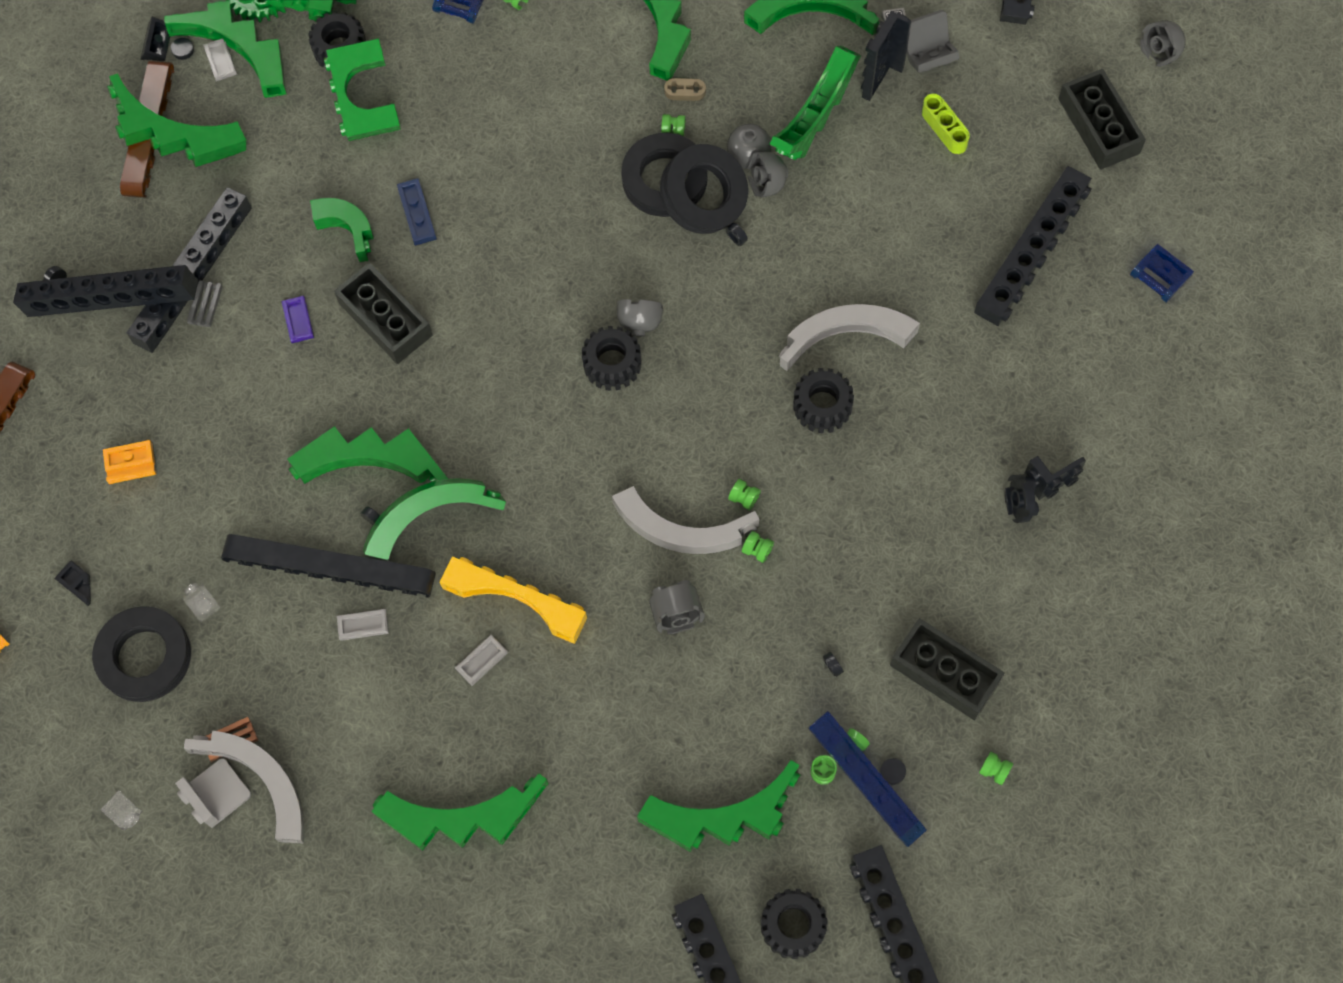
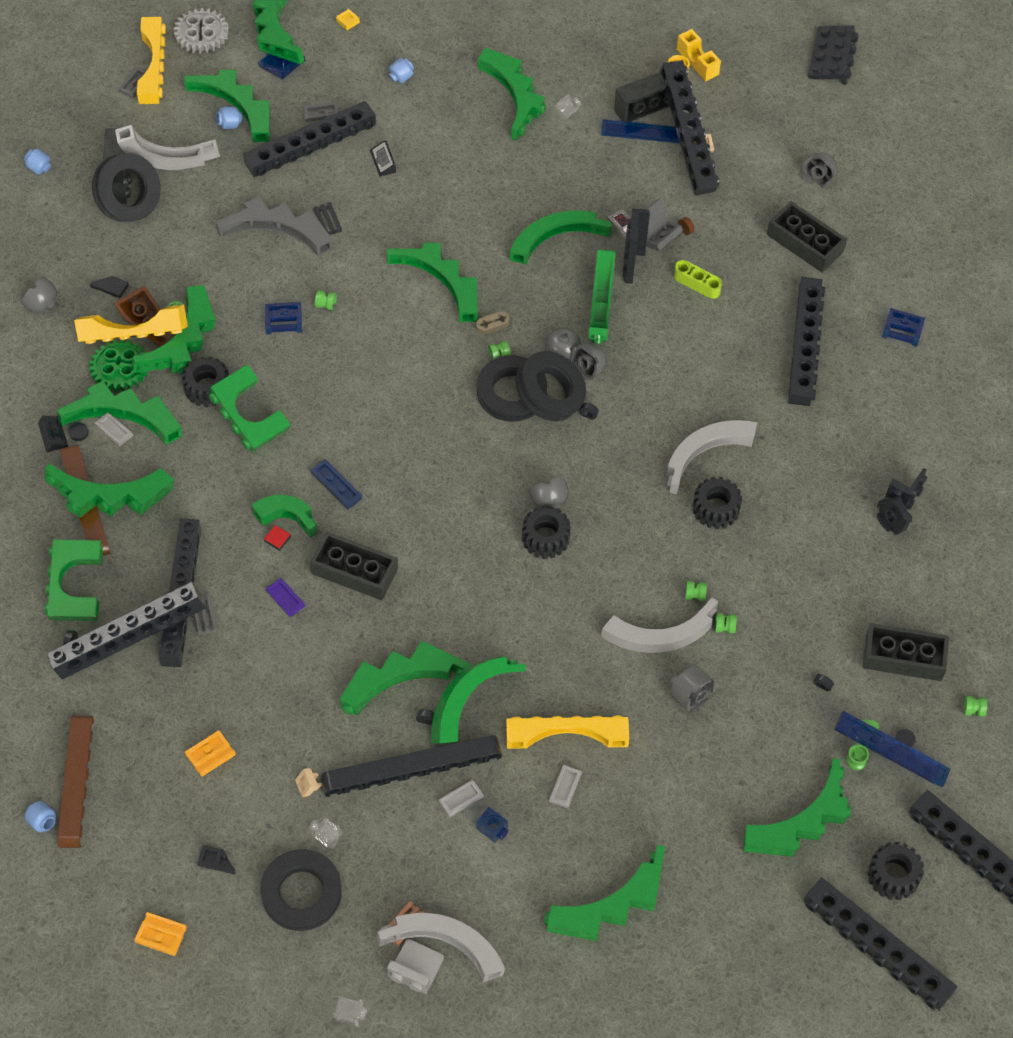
camera: 30 degrees left, 10 degrees down
(85, 184) = (64, 556): none -> green arch
(209, 537) = (307, 783): none -> tan tile
(324, 248) = (277, 538): none -> red tile
(370, 663) = (492, 817): none -> clear blue brick
(966, 54) = (687, 225): none -> reddish brown tile

